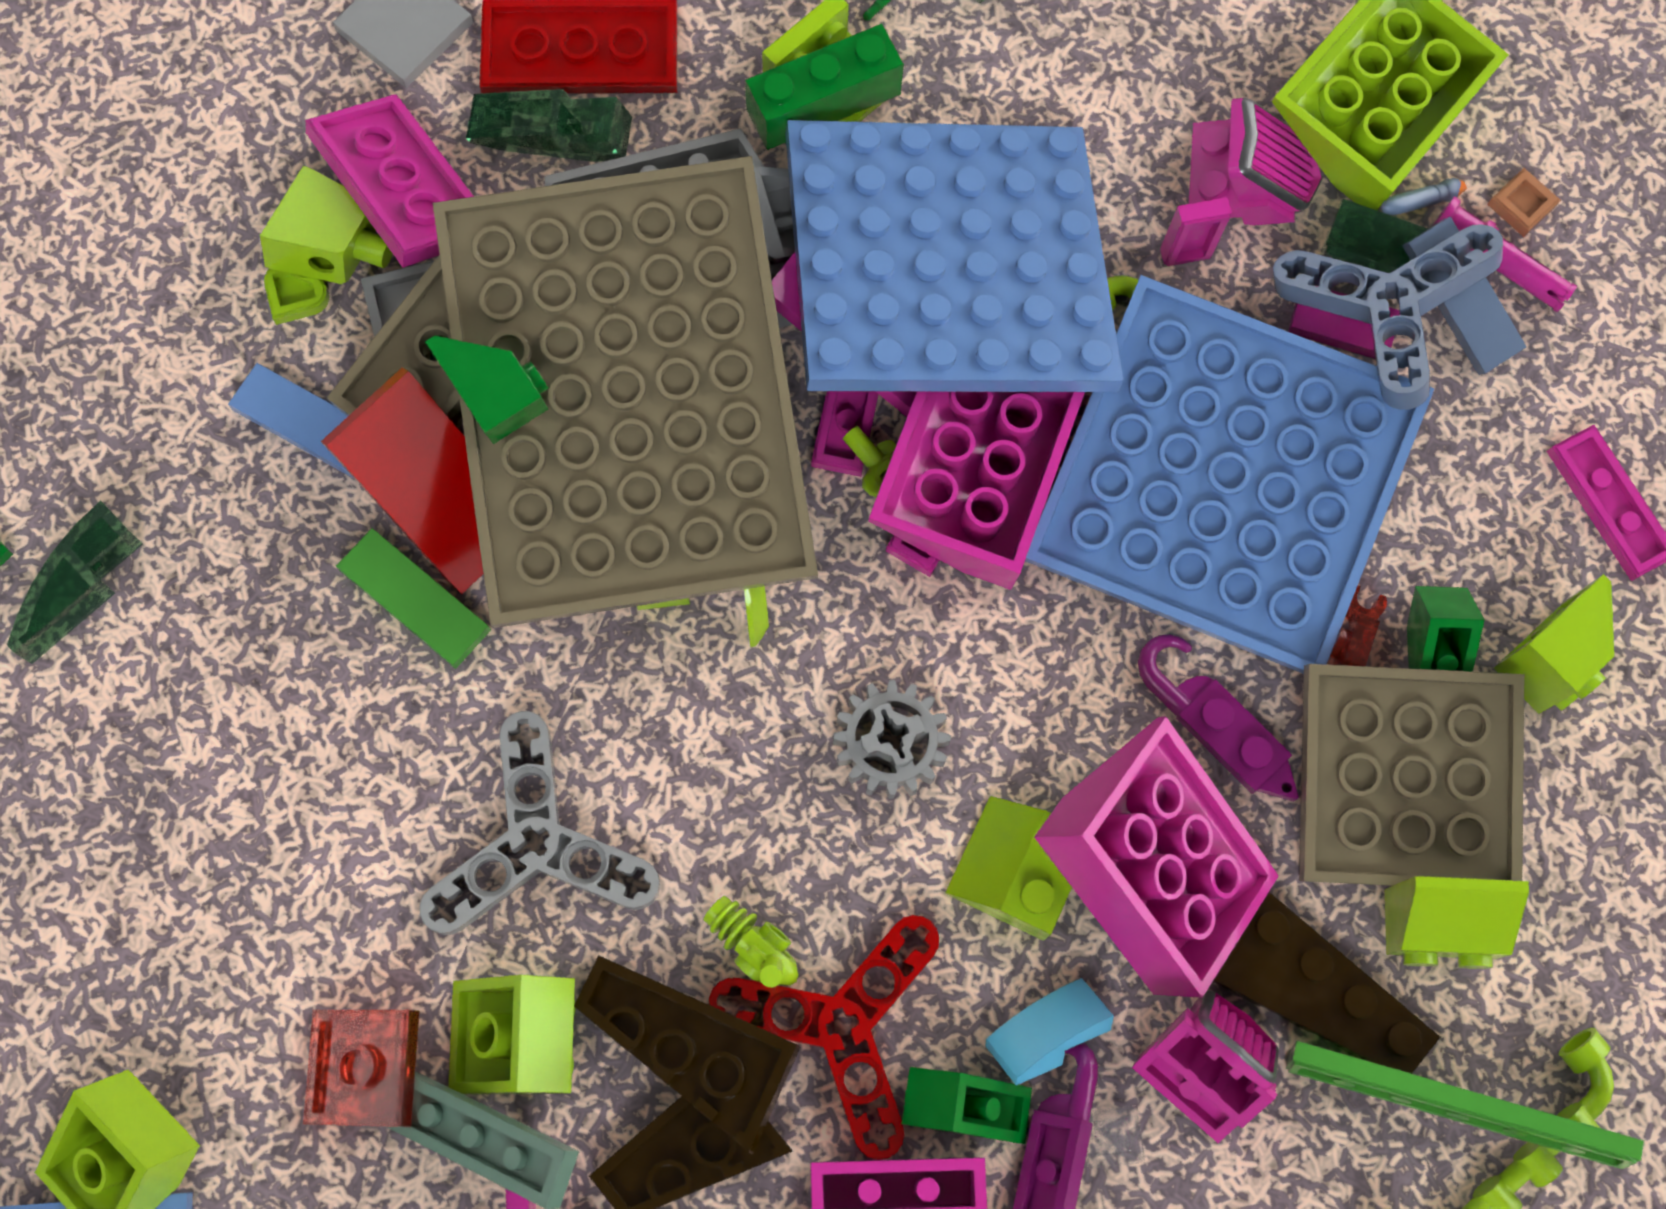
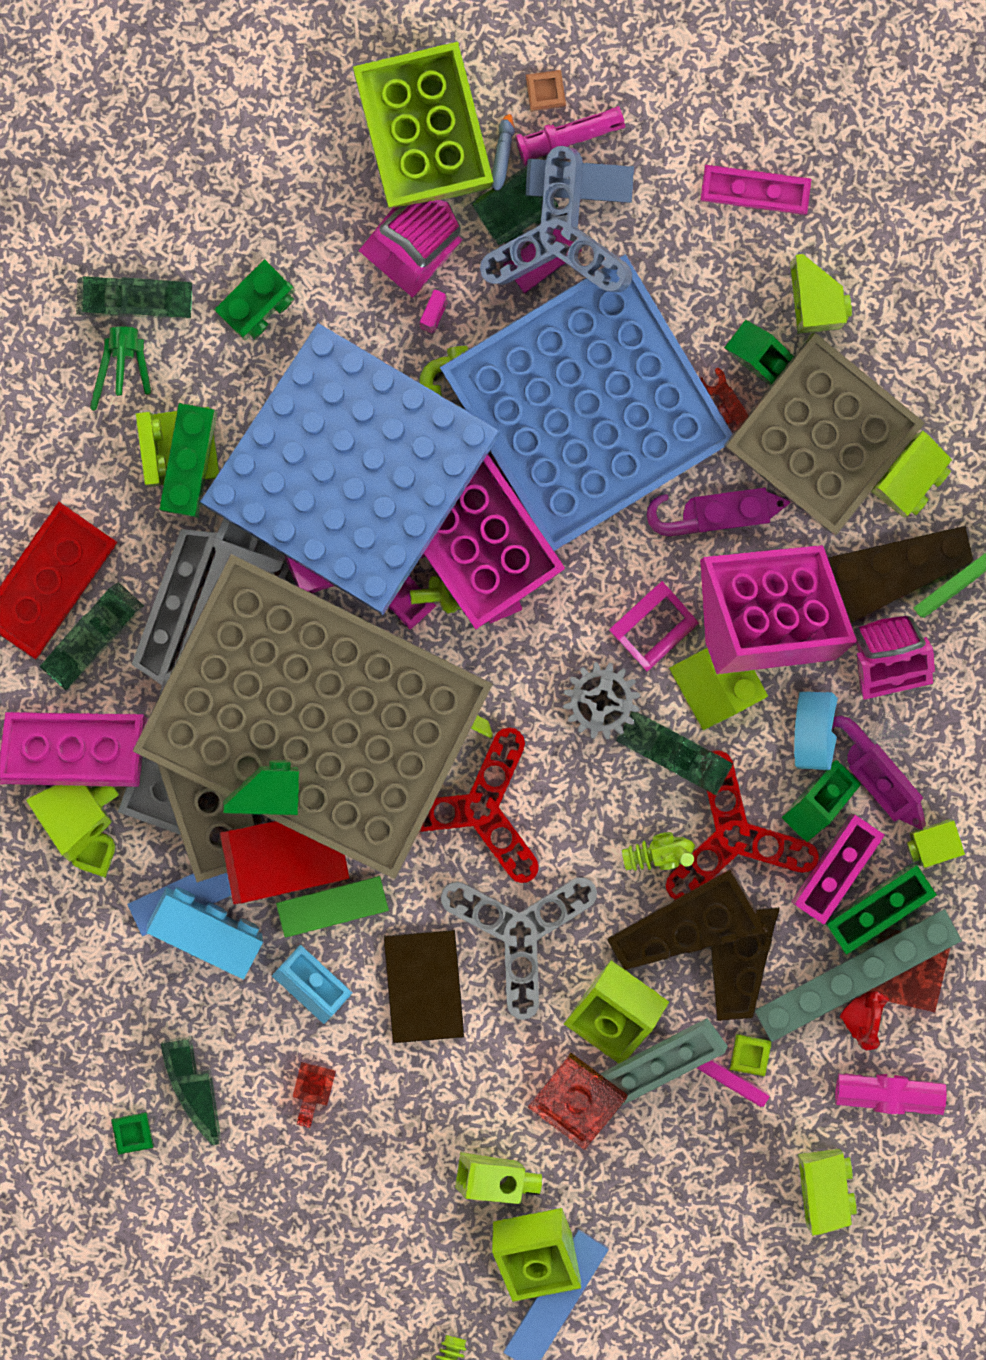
camera: 50 degrees left, 15 degrees up
(166, 728) = (313, 1087): none -> clear red plate
(181, 1008) = (481, 1176): none -> lime torso
(277, 464) = (205, 932): none -> medium azure brick
(300, 639) = (312, 984): none -> medium azure slope
(385, 774) = (423, 986): none -> dark brown tile
(656, 716) = (496, 818): none -> red piece
(894, 876) = (675, 752): none -> clear green slope
(1032, 709) = (639, 611): none -> dark pink tile
(1053, 57) = (256, 301): none -> green bracket

